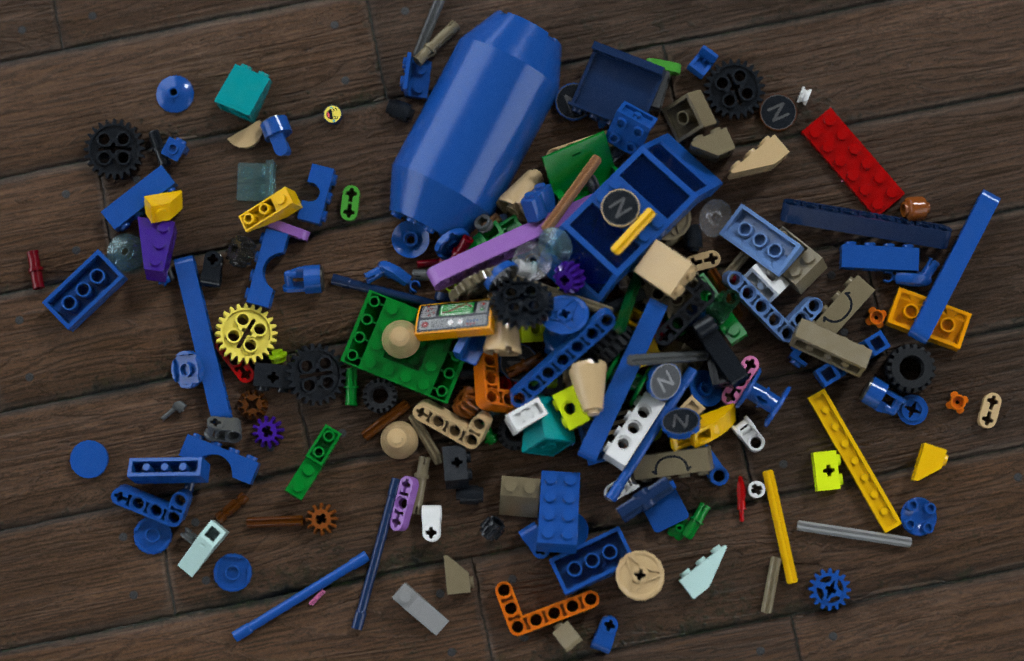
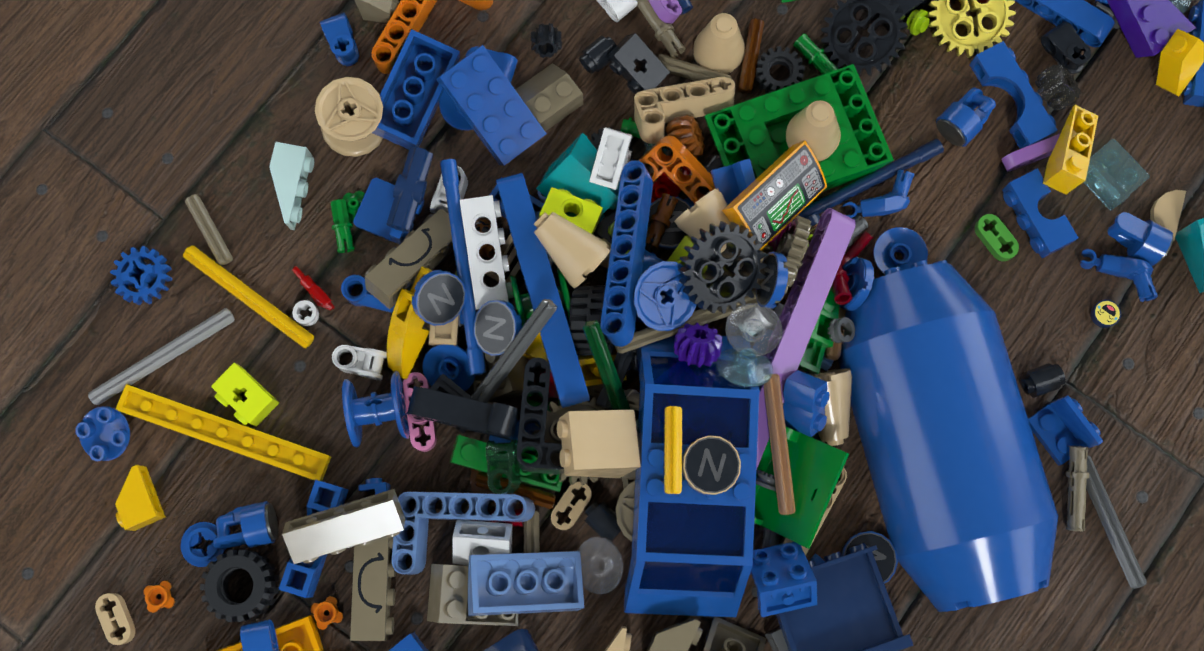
camera: 135 degrees right, 5 degrees down
(300, 127) = (1124, 267): none -> blue arm

